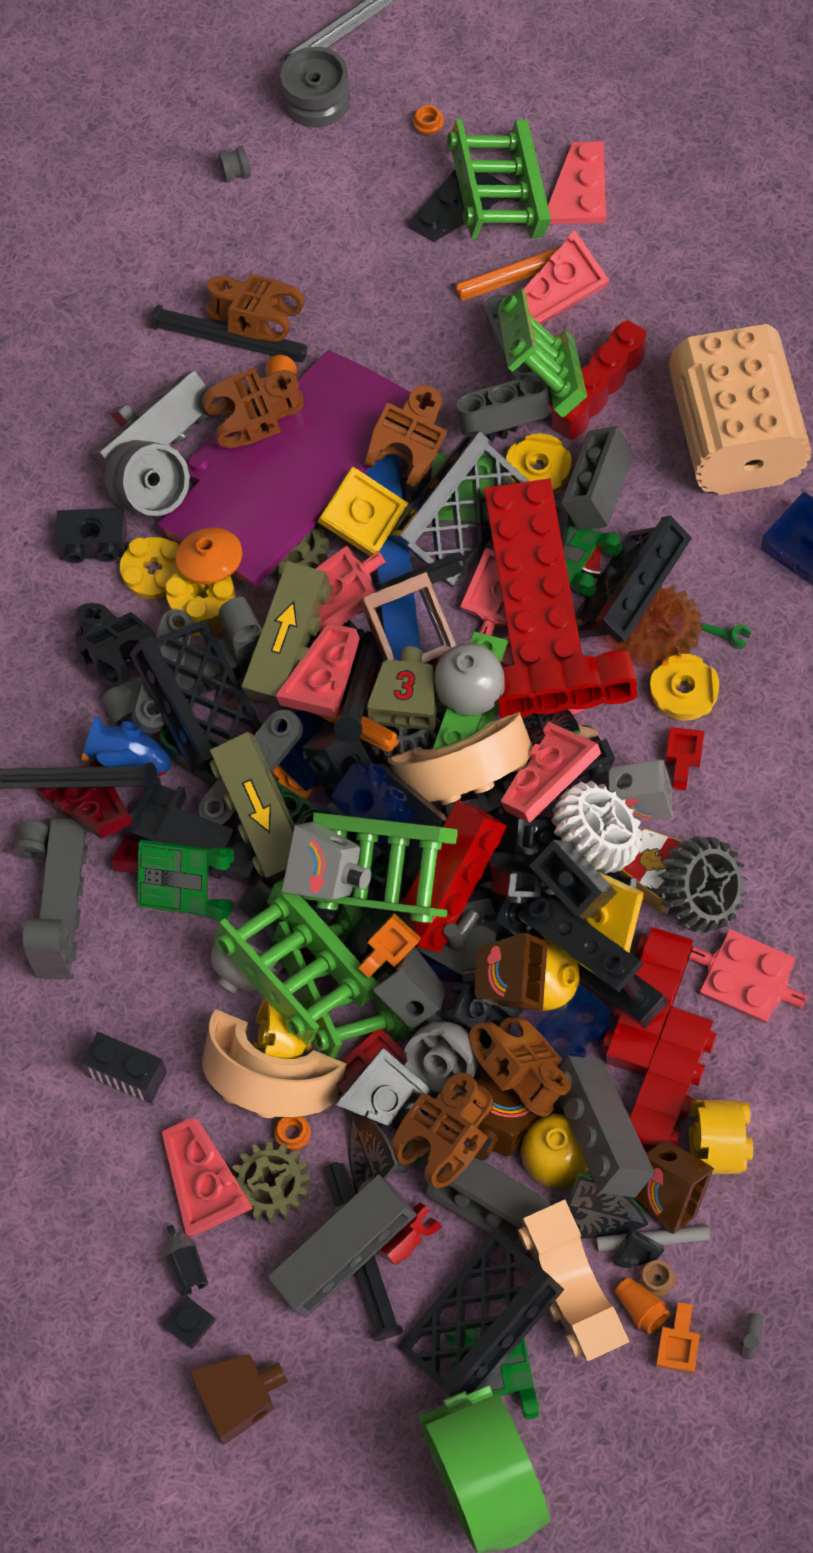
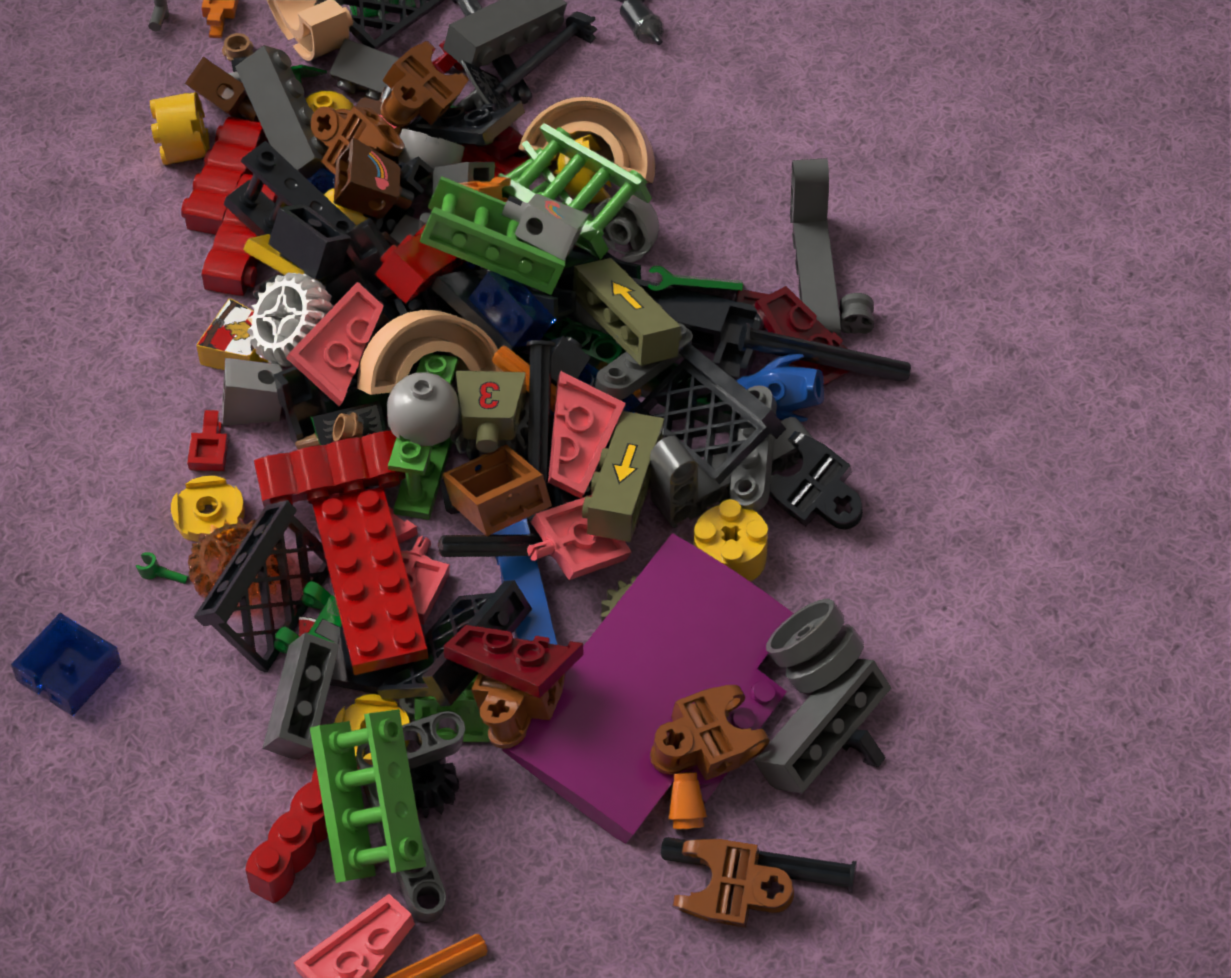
camera: 170 degrees right, 10 degrees down
(76, 526) = (885, 593): black brick -> none
(124, 1067) = (723, 141): black brick -> none
(143, 553) = (798, 569): yellow plate -> none
(201, 1178) = (637, 70): coral wing -> none
(209, 555) = (721, 572): orange dish -> none
(261, 1264) = (577, 25): none -> black piece
(282, 1174) = (576, 75): olive gear -> none
(362, 512) = (565, 614): yellow plate -> none
(407, 432) = (516, 662): none -> dark red wing
(545, 712) = (347, 427): none -> medium nougat plate
(643, 1306) = (247, 22): orange cone -> none
(711, 885) = (190, 312): dark grey gear -> none
(739, 409) = (136, 769): light nougat piece -> none
(748, 976) = (151, 267): coral plate -> none

